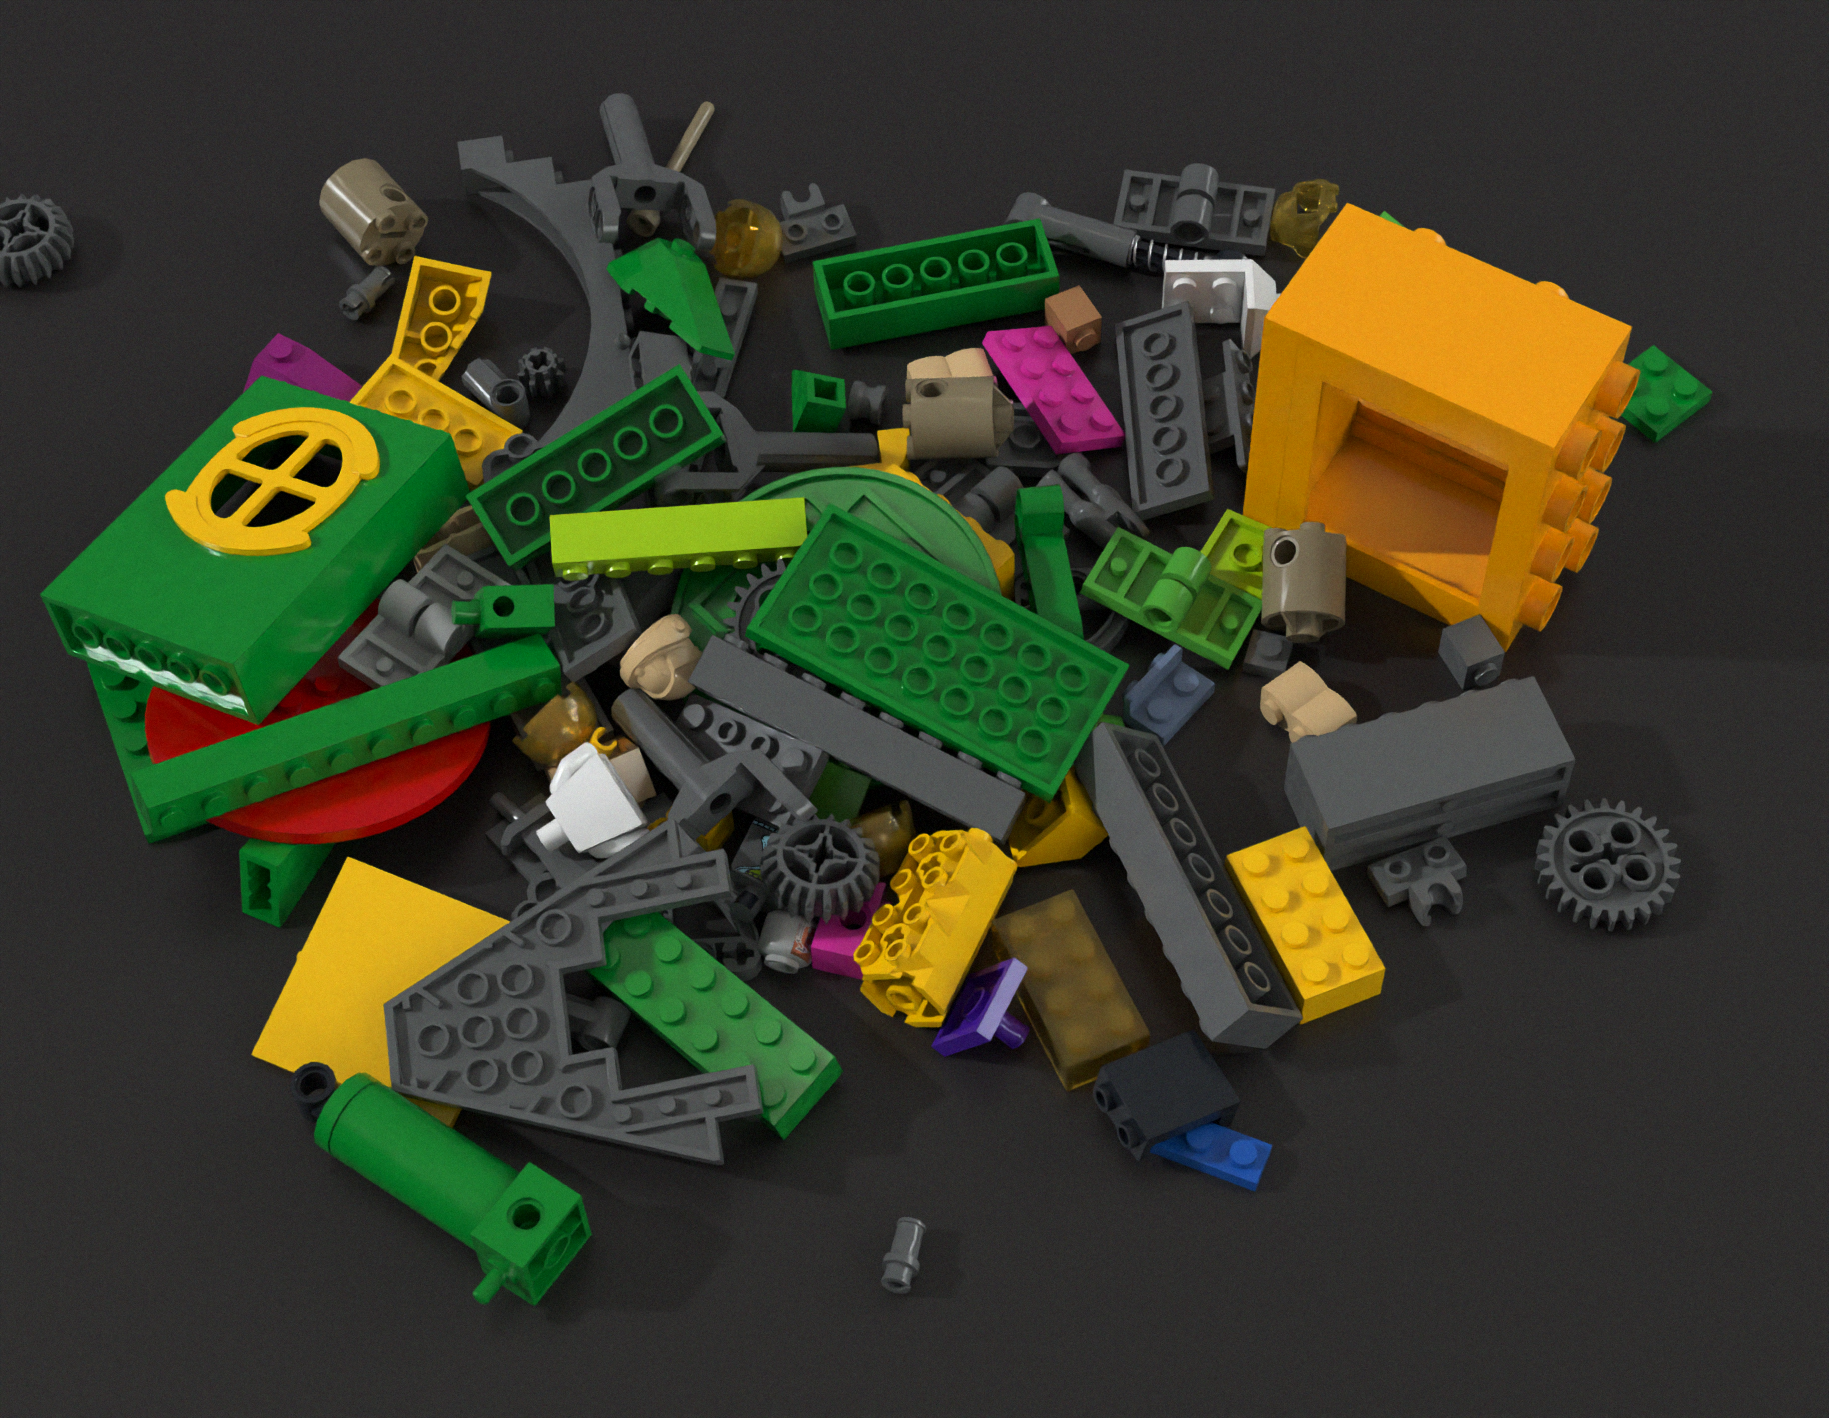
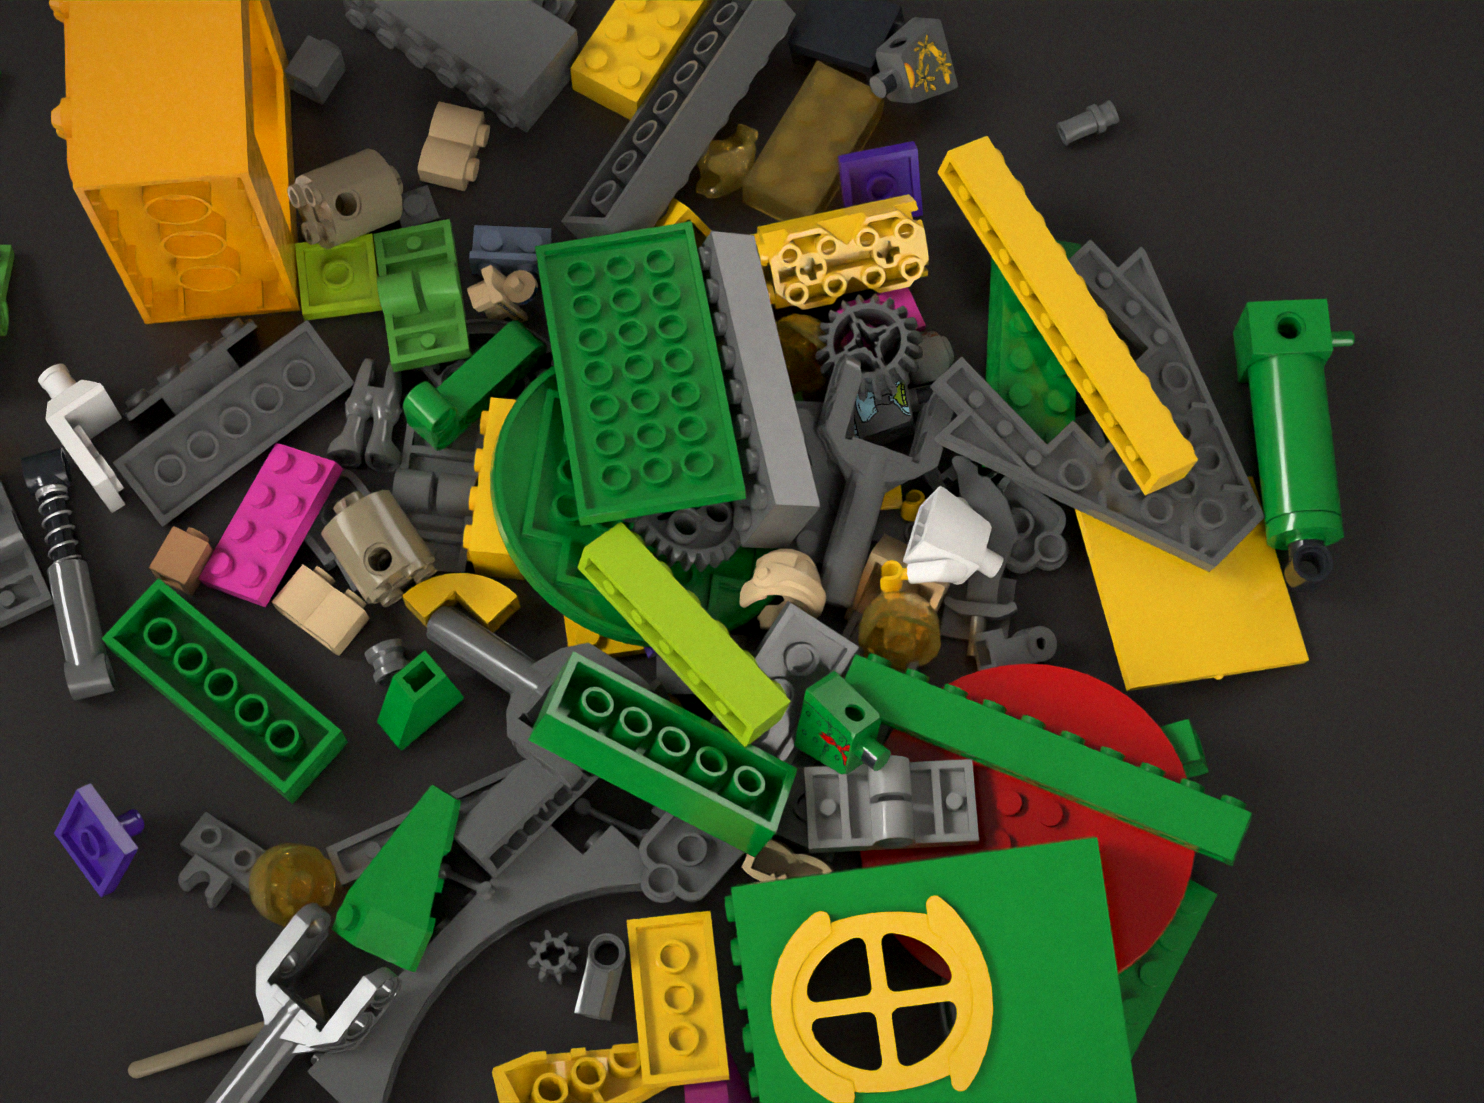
camera: 130 degrees left, 15 degrees up
(469, 821) = (1024, 647): none -> dark grey leg
(704, 1022) = (1067, 315): none -> yellow brick
(888, 154) = (98, 839): none -> dark purple tile
(1076, 1111) = (914, 63): none -> dark grey torso
(1109, 906) = (726, 163): none -> clear yellow helmet
(1123, 638) = (502, 295): none -> tan hips

